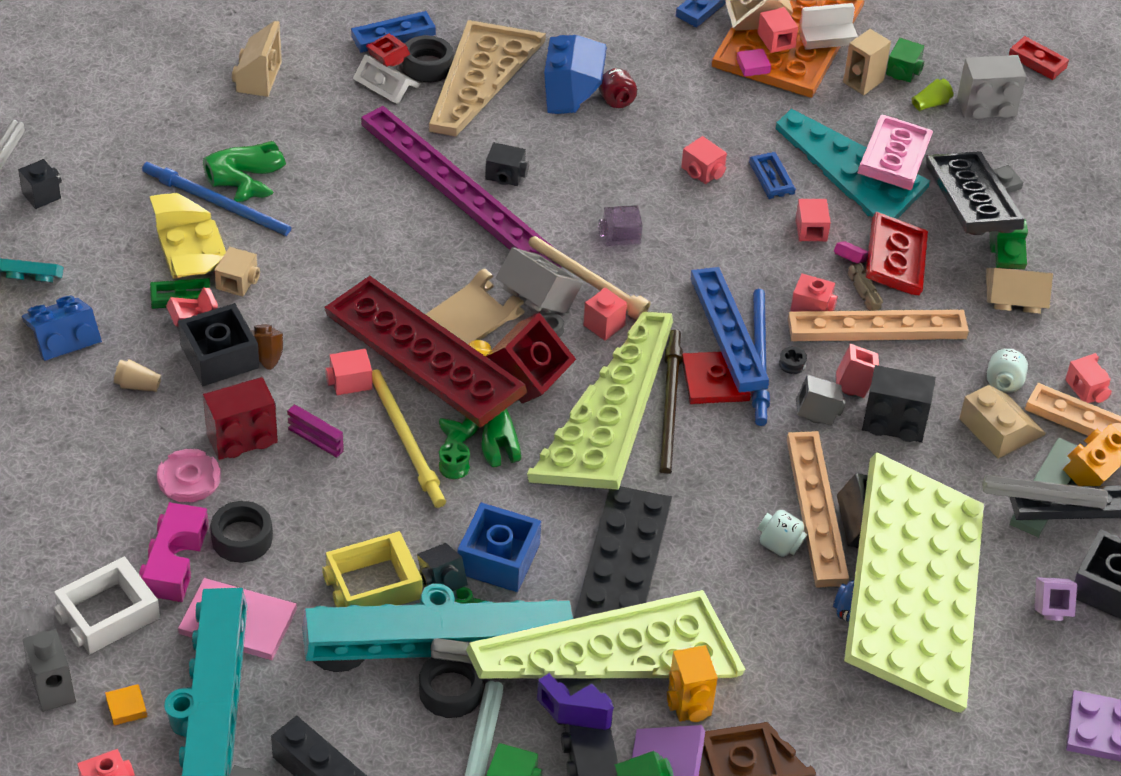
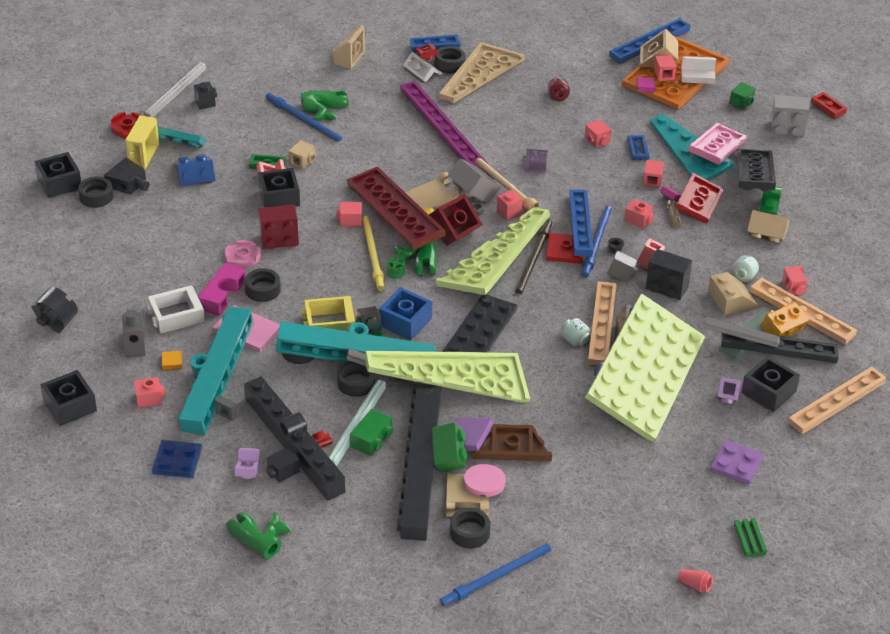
camera: 15 degrees right, 5 degrees down
(136, 377) = (227, 199): tan cone -> none
(186, 235) = (279, 131): light yellow piece -> none
(269, 344) = (307, 194): reddish brown plate -> none
(315, 430) = (320, 241): magenta tile -> none
(506, 164) = (477, 120): black brick -> none
(572, 72) = (533, 75): blue wedge -> none
(583, 708) = (422, 396): dark purple slope -> none
(692, 684) = (493, 397): light orange brick -> none
(866, 61) = (715, 92): tan brick -> none
(877, 325) = (674, 234): light nougat plate -> none
(935, 94) = (755, 116): lime cone -> none
(1008, 178) = (783, 169): dark grey plate -> none

